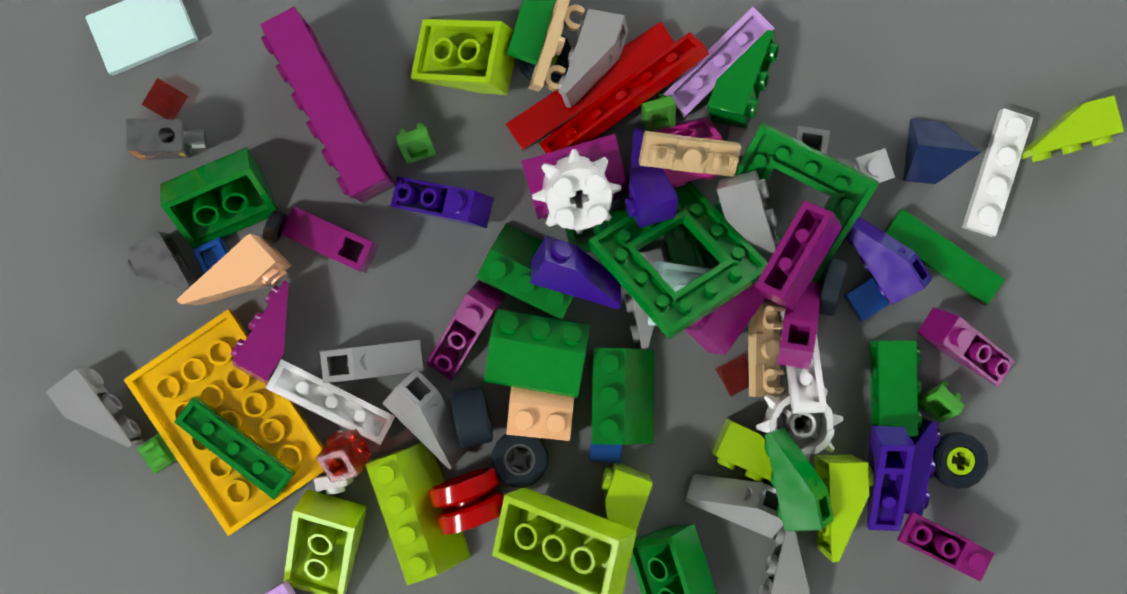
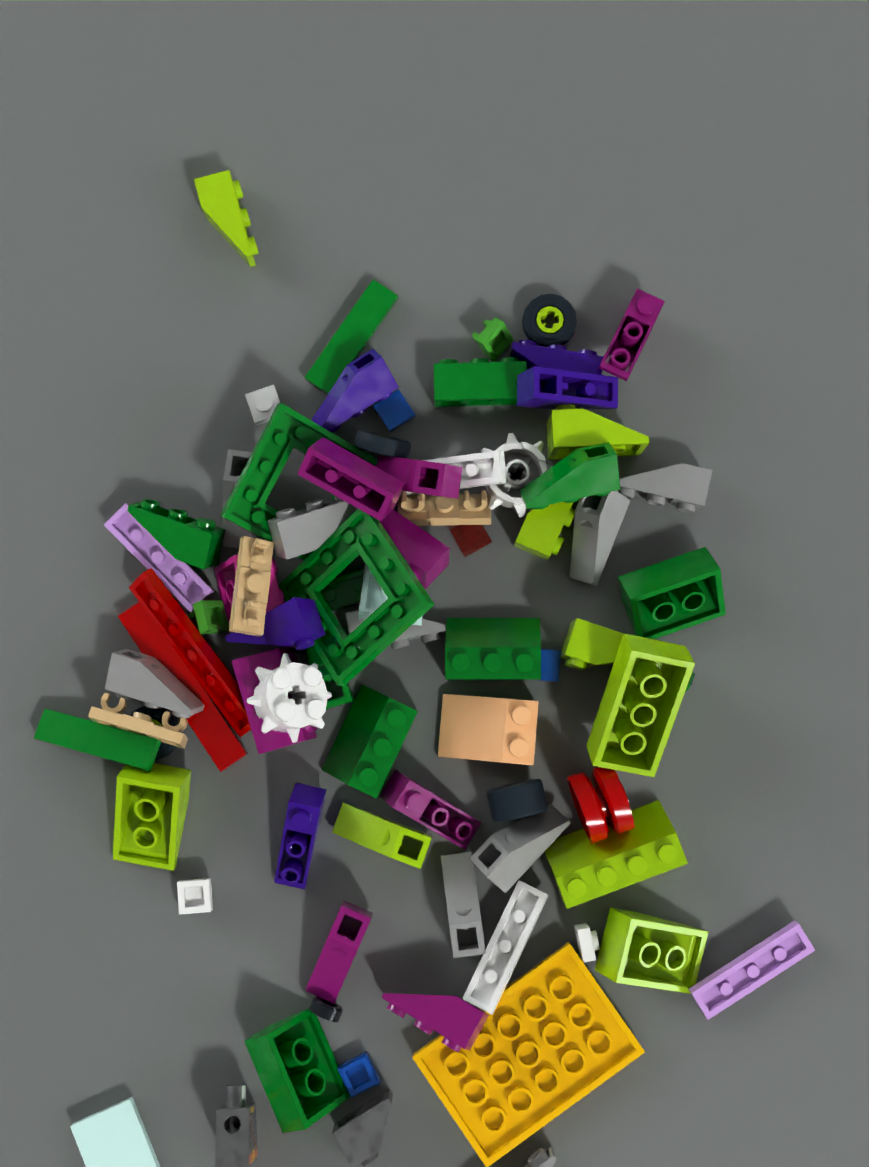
camera: 90 degrees left, 5 degrees down
(156, 454) = (562, 1130): bright green tile -> none
(164, 99) = (194, 1131): clear red plate -> none
(234, 447) = (553, 1046): green tile -> none
(245, 268) = (369, 1038): light nougat slope -> none
(327, 106) = (201, 955): magenta brick -> none
(344, 455) = (558, 931): clear red brick -> none
(385, 99) = (194, 896): none -> white plate
(415, 144) = (241, 863): bright green tile -> none
(440, 283) = (382, 835): none -> lime slope
(519, 468) = (559, 751): black wheel -> none
(536, 353) = (451, 735): green slope -> none
(573, 272) = (370, 699): dark purple slope -> none
(934, 152) = (248, 347): dark blue slope -> none
(965, 345) = (437, 315): magenta slope -> none
(997, 172) = (268, 286): white plate -> none

